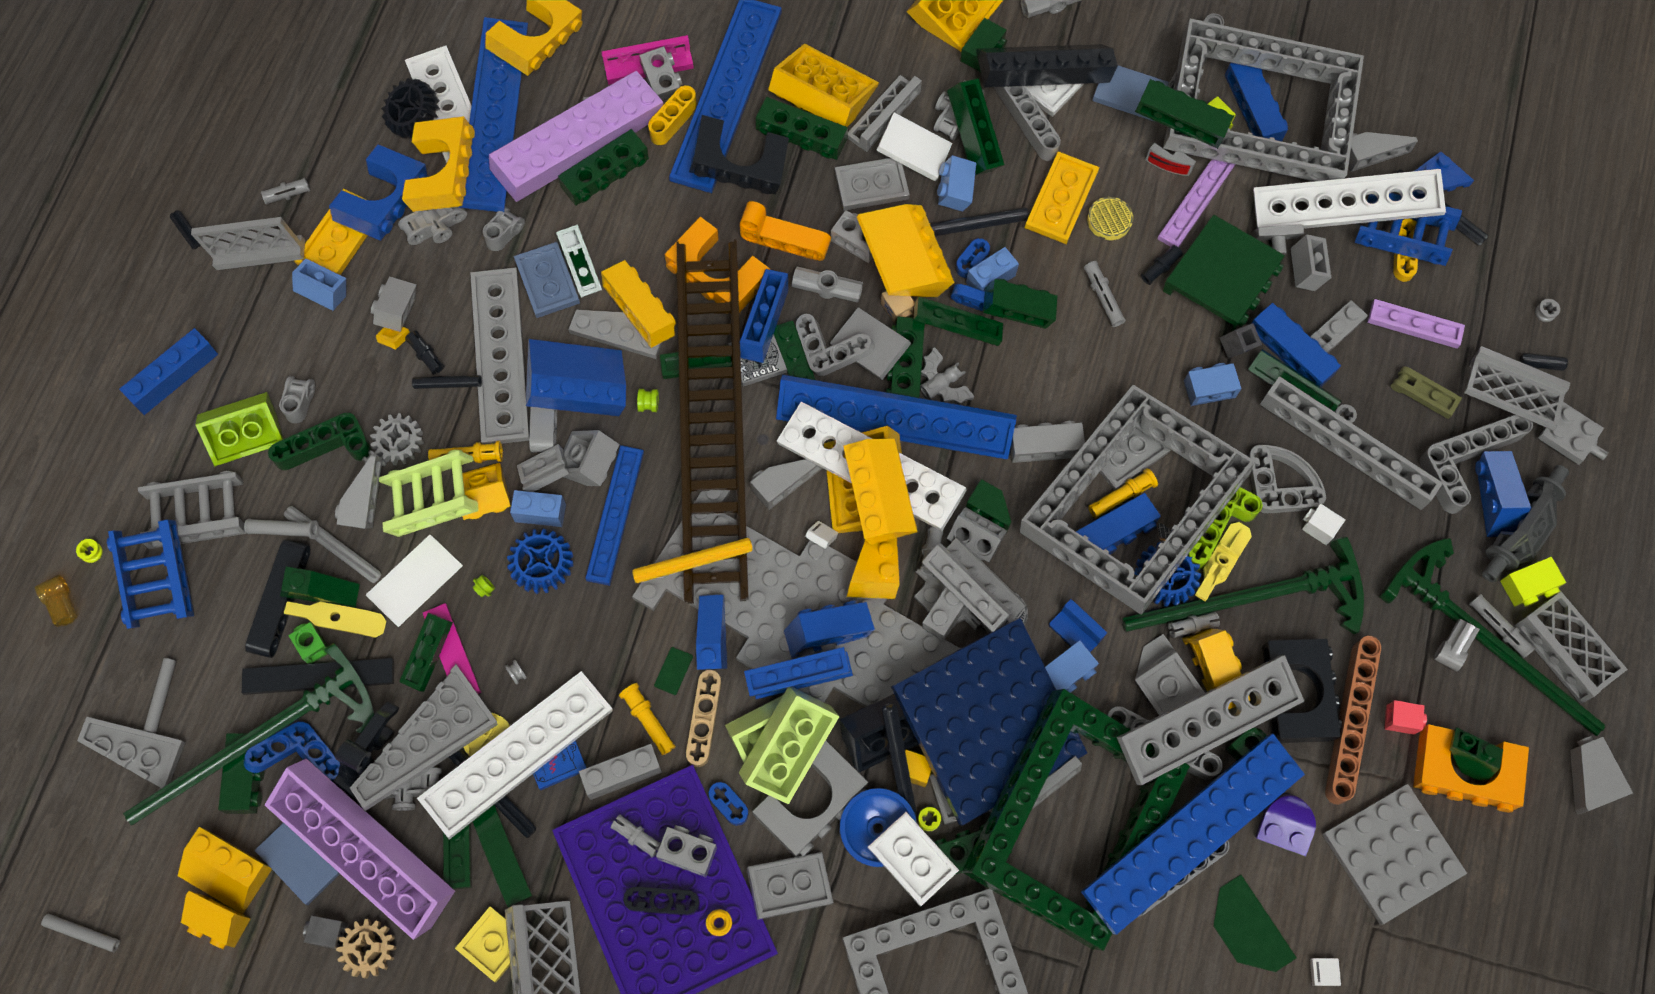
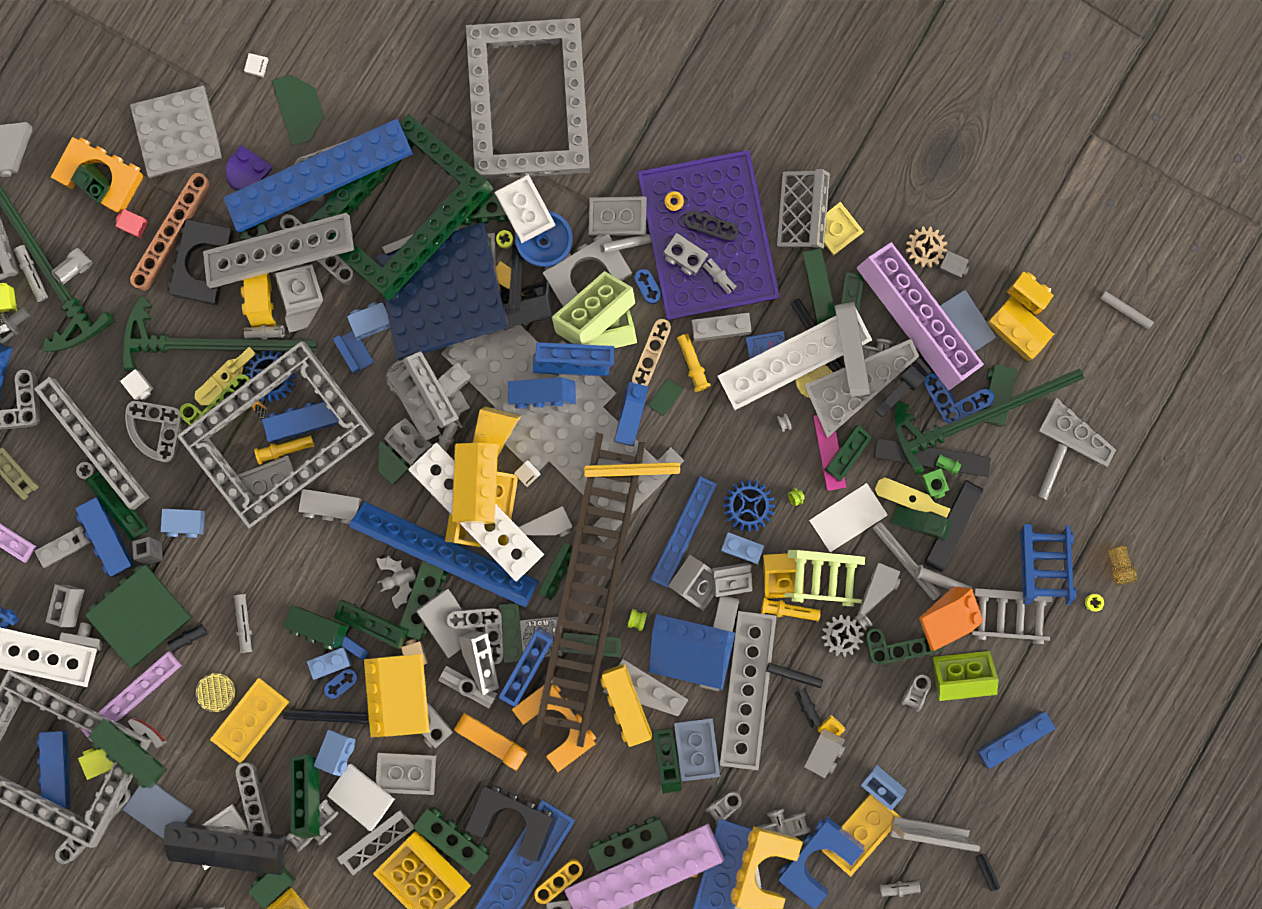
camera: 165 degrees left, 15 degrees up
(262, 482) = (951, 617): none -> orange slope
(294, 668) = (948, 464): none -> bright green pin
(439, 775) = (852, 349): none -> light grey beam
(755, 430) = (557, 572): none -> dark green plate
(770, 847) = (625, 243): none -> light grey piece
(821, 310) = (478, 656): none -> light grey slope

